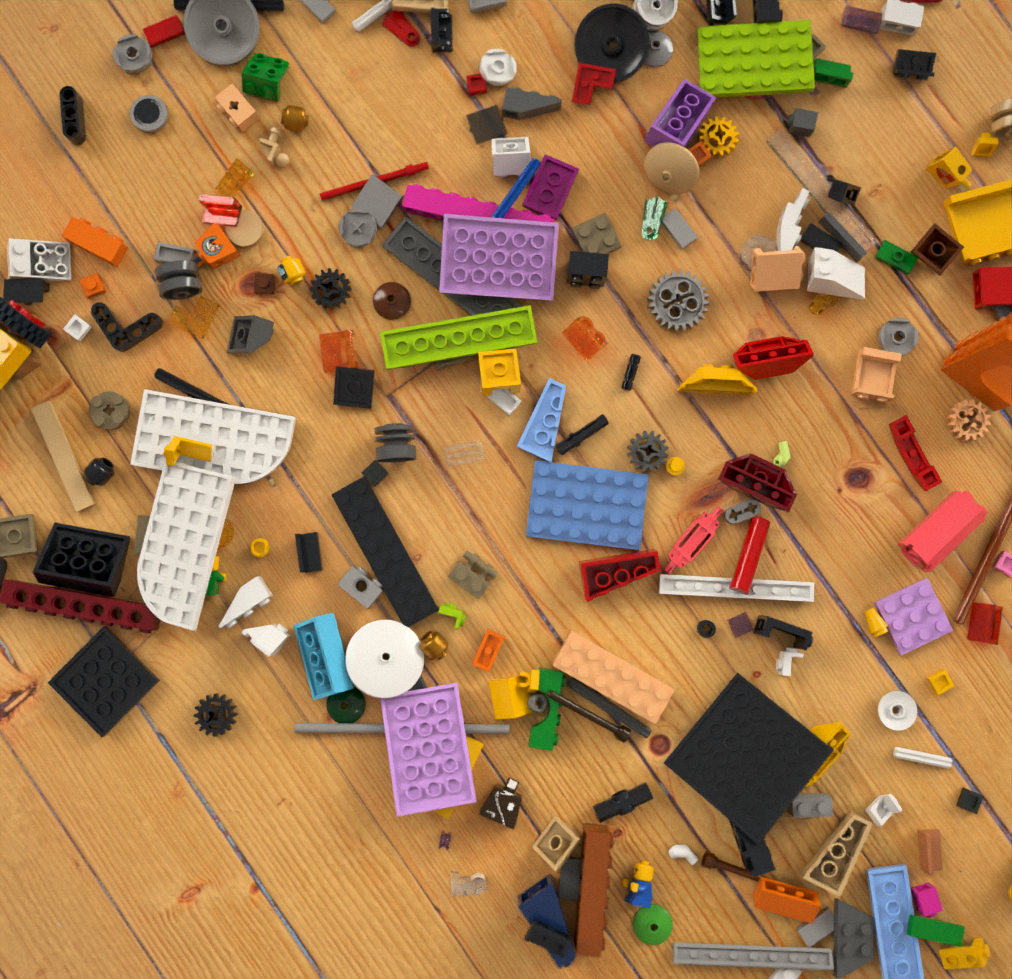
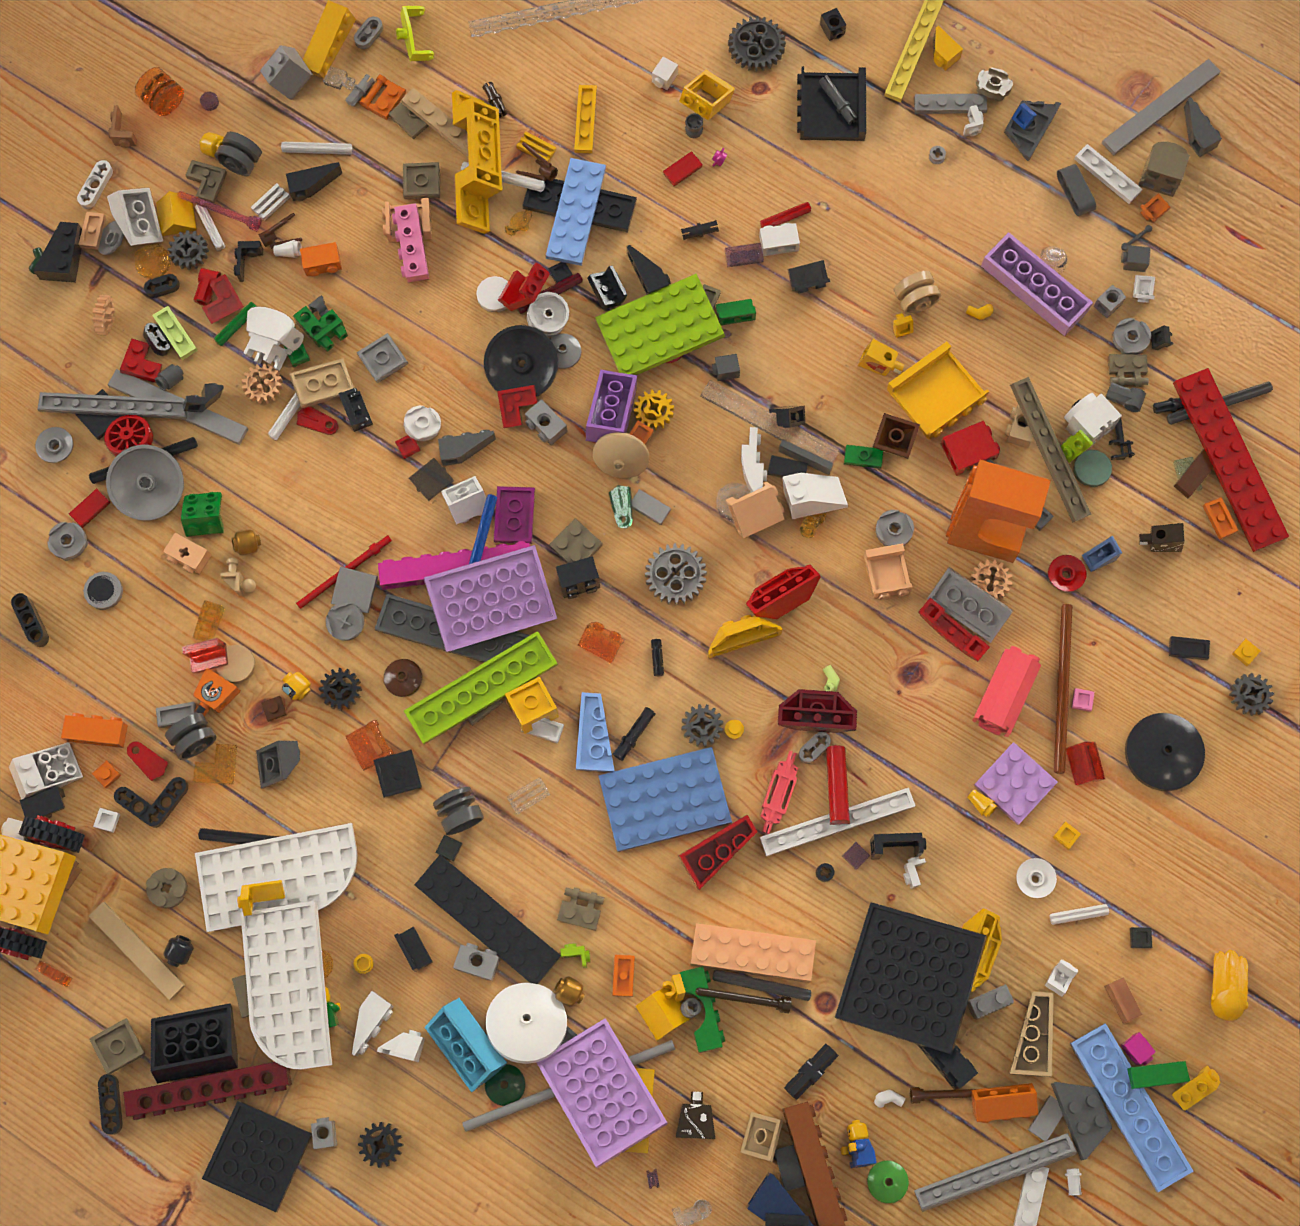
camera: 15 degrees left, 10 degrees down
(133, 287) = (148, 761): none -> red piece
(162, 690) = (331, 1140): none -> light grey brick
(612, 100) = (542, 412): none -> light grey brick
(941, 436) = (970, 604): none -> light grey plate

